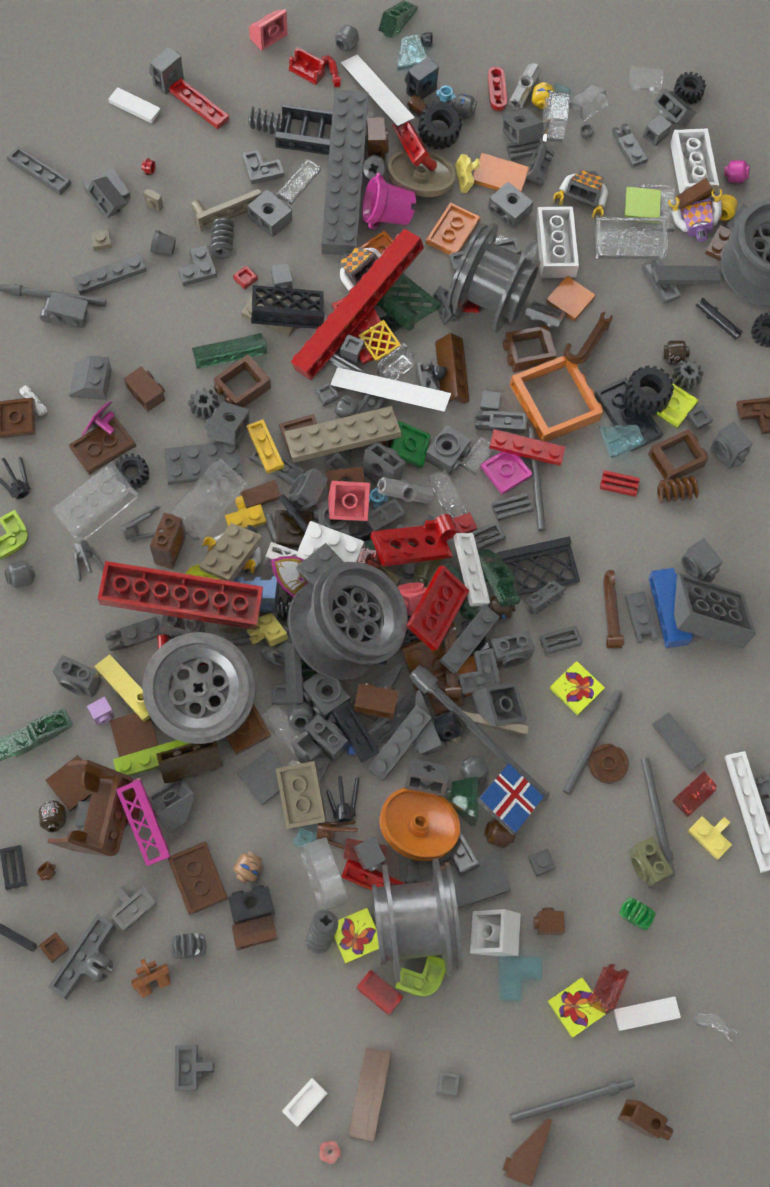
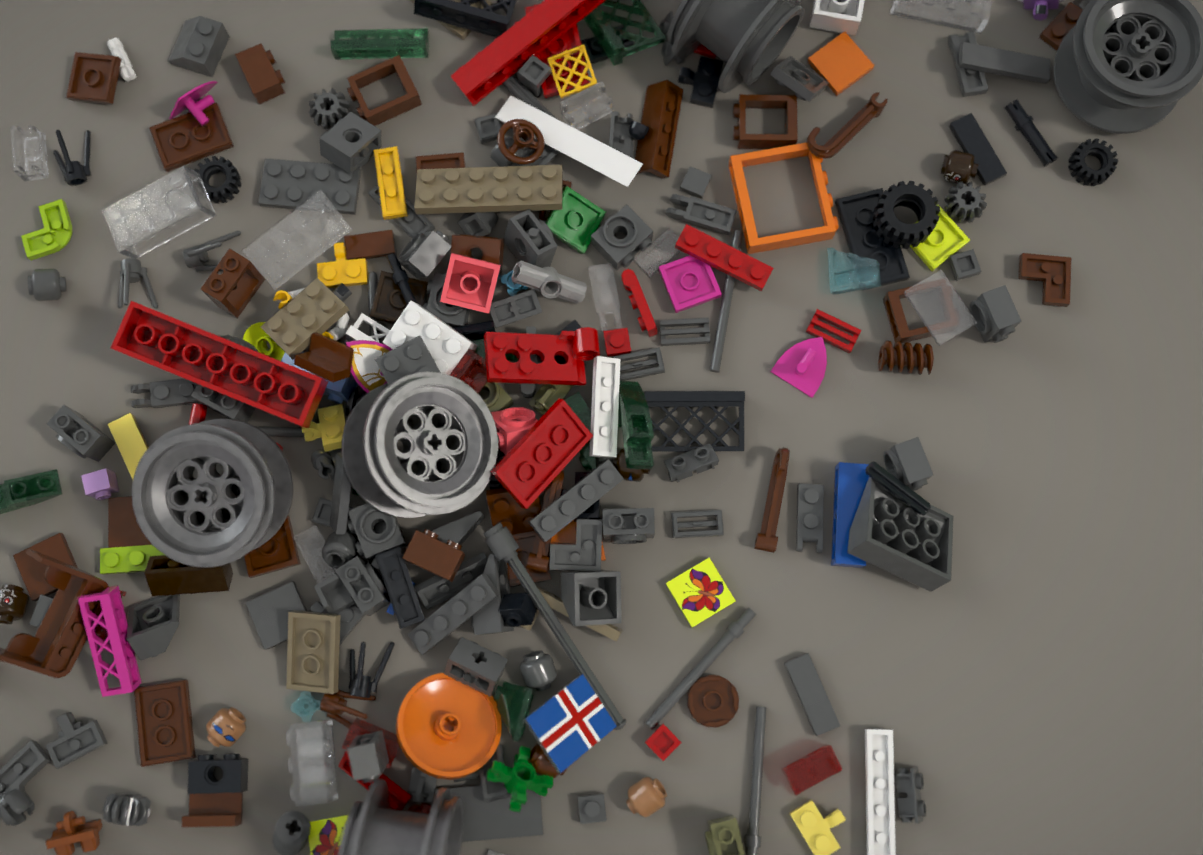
camera: 20 degrees right, 10 degrees up
(259, 573) = (326, 358): none -> reddish brown panel
(359, 392) = (525, 130): none -> reddish brown piece
(474, 492) = (638, 301): none -> red hinge
(475, 329) = (704, 81): none -> black plate
(484, 848) = (519, 778): none -> green pin
(580, 800) = (663, 742): none -> red plate
(580, 842) = (646, 796): none -> medium nougat head
(605, 512) = (803, 365): none -> dark pink shield
(679, 331) = (975, 142): none -> black tile
(692, 448) = (940, 307): none -> clear piece
(699, 577) = (897, 488): none -> black axle

